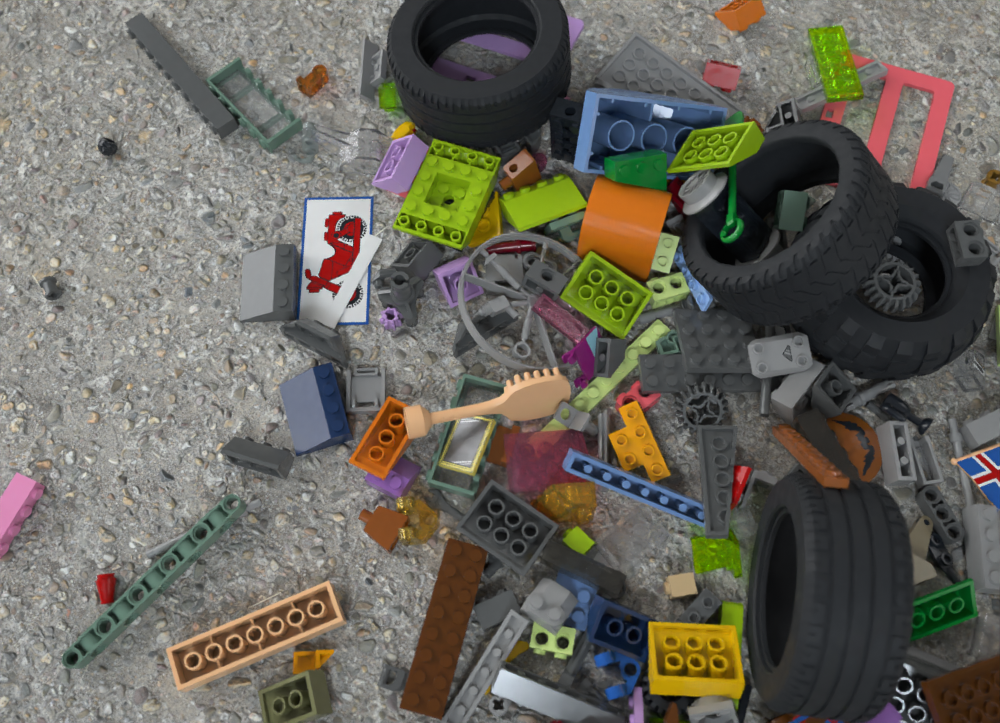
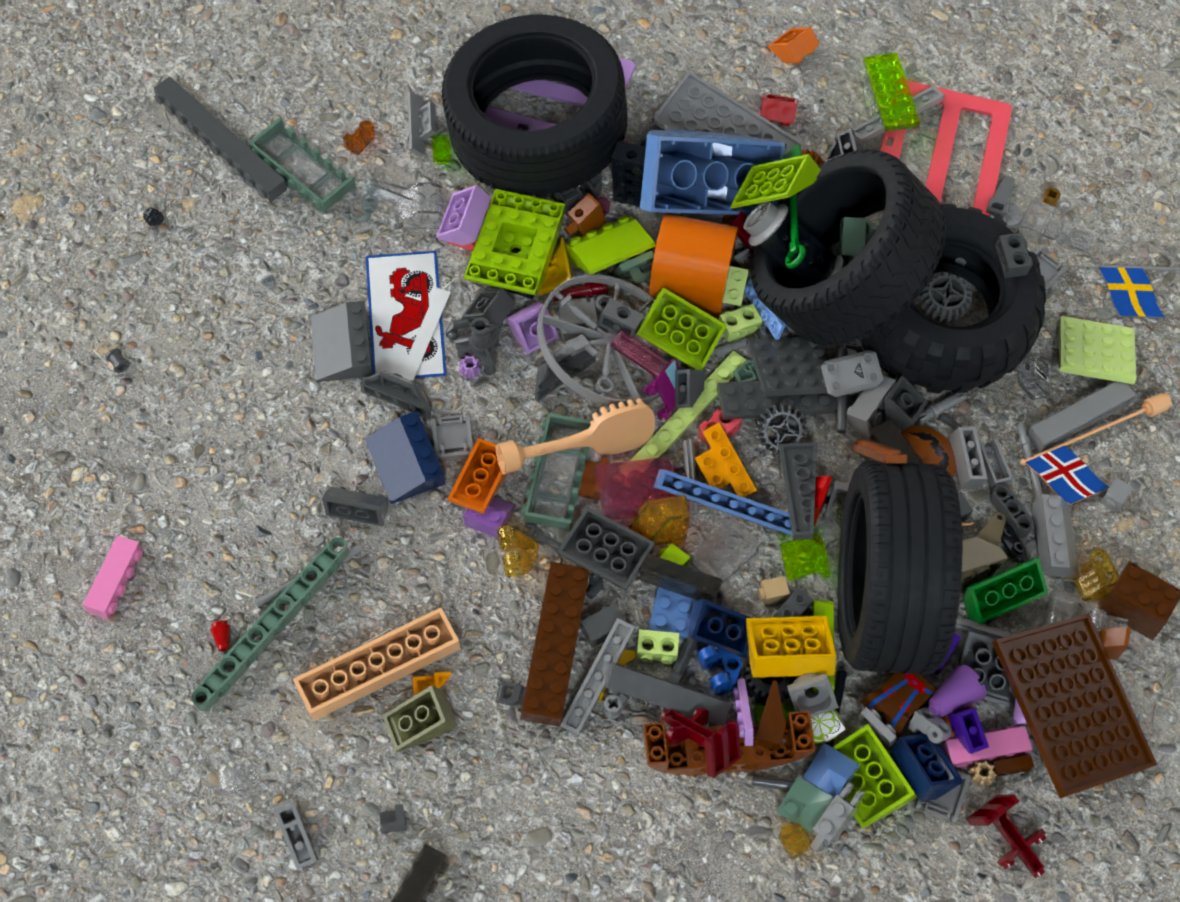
camera: 10 degrees left, 5 degrees down
(383, 526) = (485, 560): dark orange torso -> none
(403, 130) = (462, 182): yellow rock -> none
(467, 444) = (558, 477): tile -> none
(549, 605) = (652, 614): light grey slope -> none
(577, 420) = (662, 448): light grey bracket -> none
(638, 168) = (703, 205): green wedge -> none
(901, 412) = (971, 418): black piece -> none

